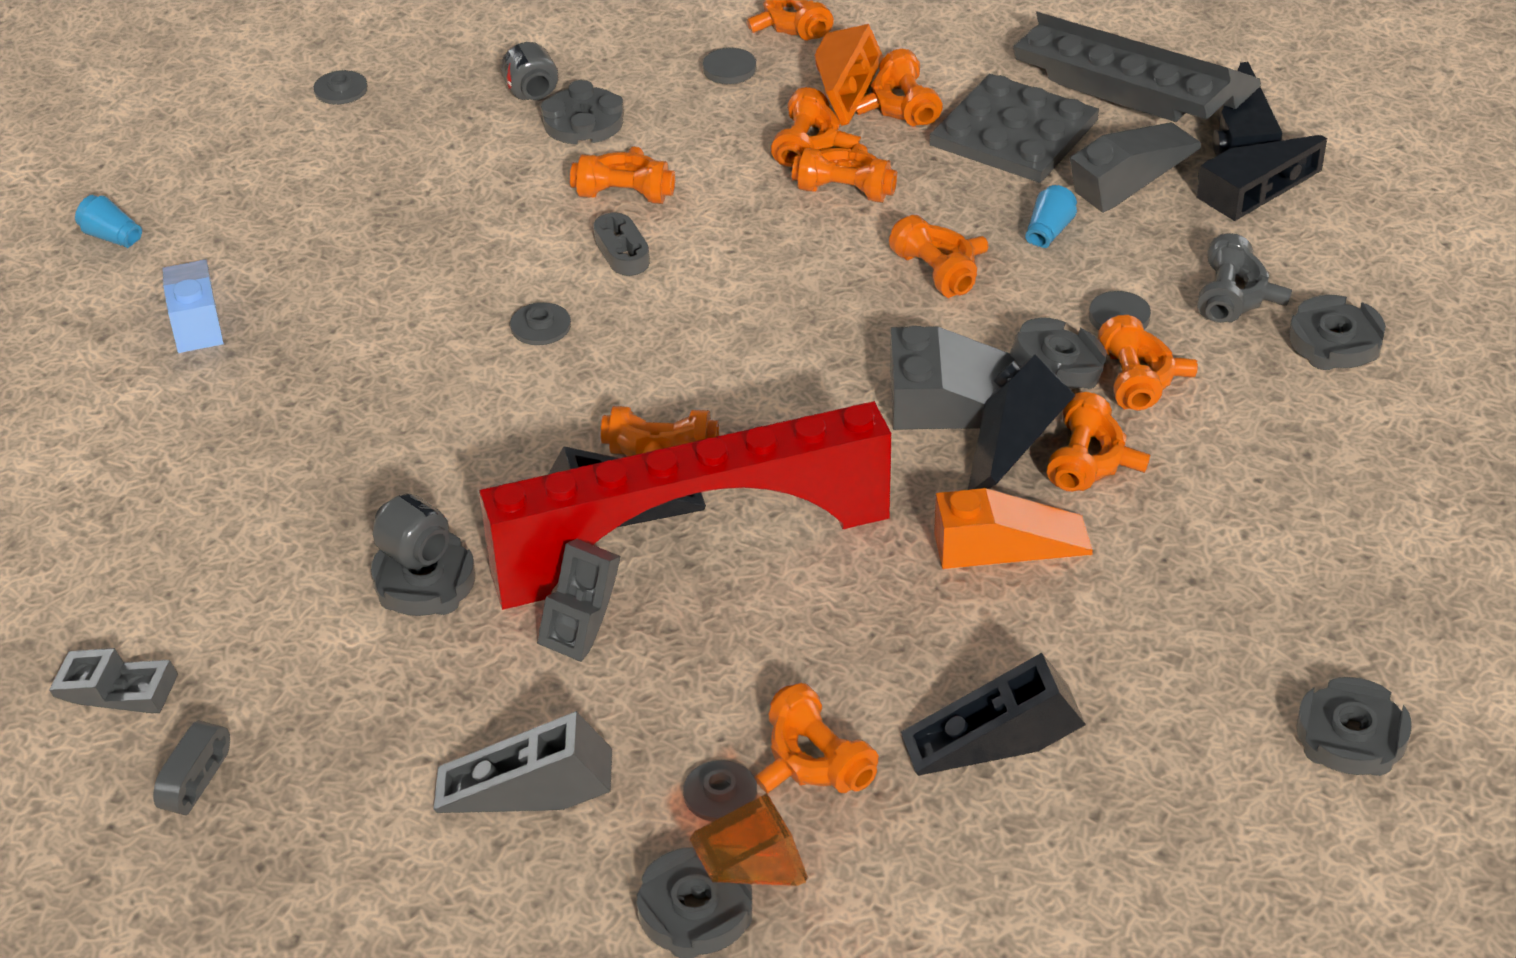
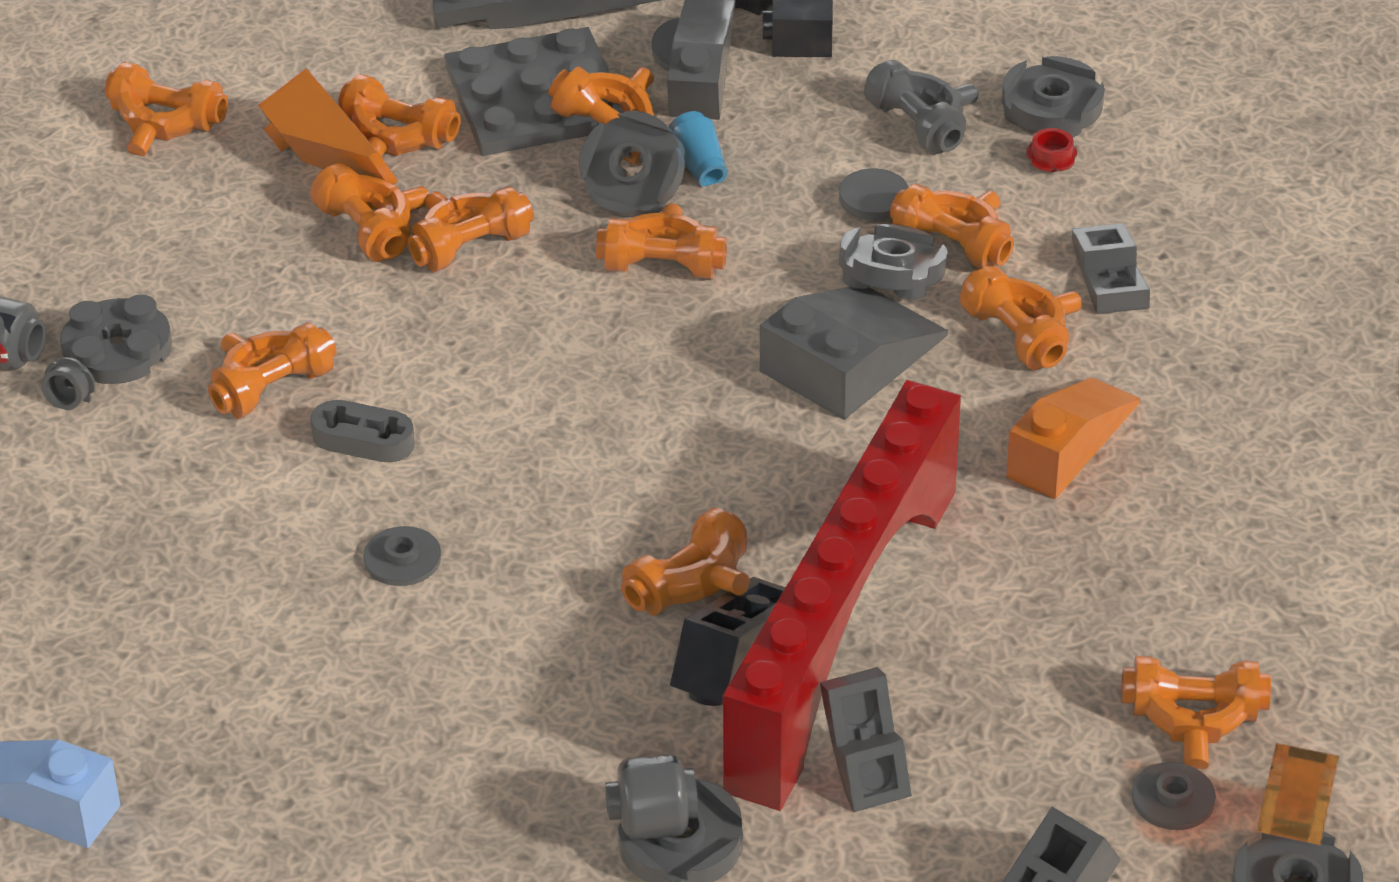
camera: 50 degrees left, 0 degrees up
(522, 119) = (59, 389): none -> dark grey plate
(729, 65) = (185, 200): dark grey piece -> none
(996, 721) = (1289, 573): black slope -> none
(1004, 196) = (652, 185): none -> dark grey plate
(1015, 417) = (960, 338): black slope -> none
(1021, 186) = (582, 95): none -> orange piece
(1205, 459) = (1110, 268): none -> dark grey slope
(1280, 363) = (1052, 150): none -> red plate

